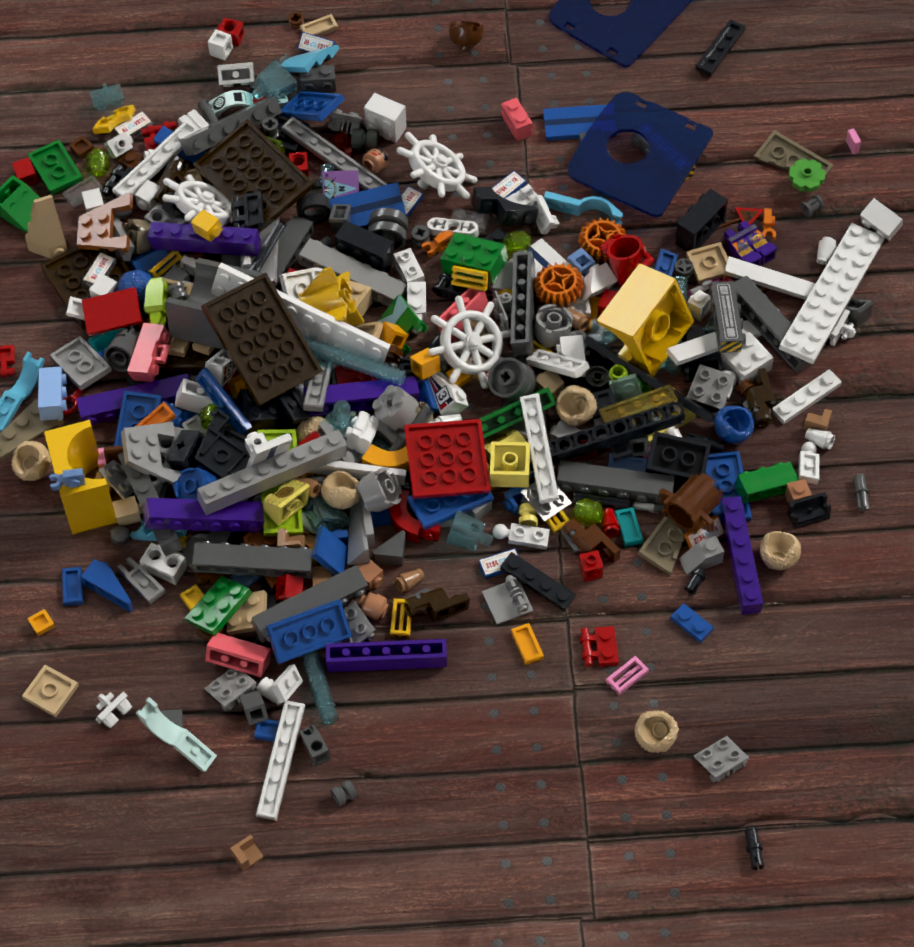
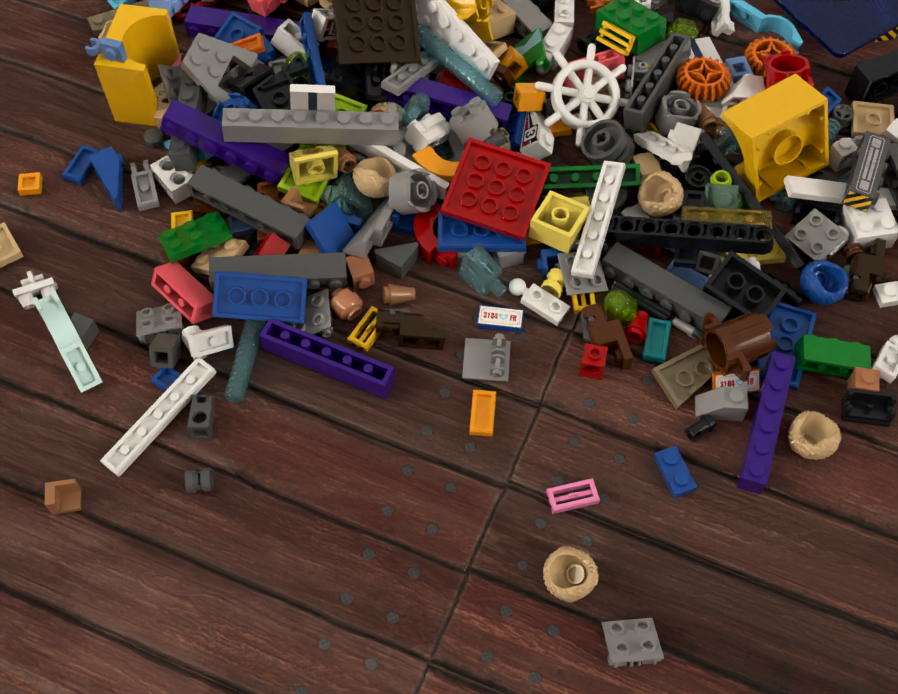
camera: 25 degrees right, 0 degrees up
(538, 581) = (529, 353): black plate -> none
(605, 643) = (566, 452): red plate -> none

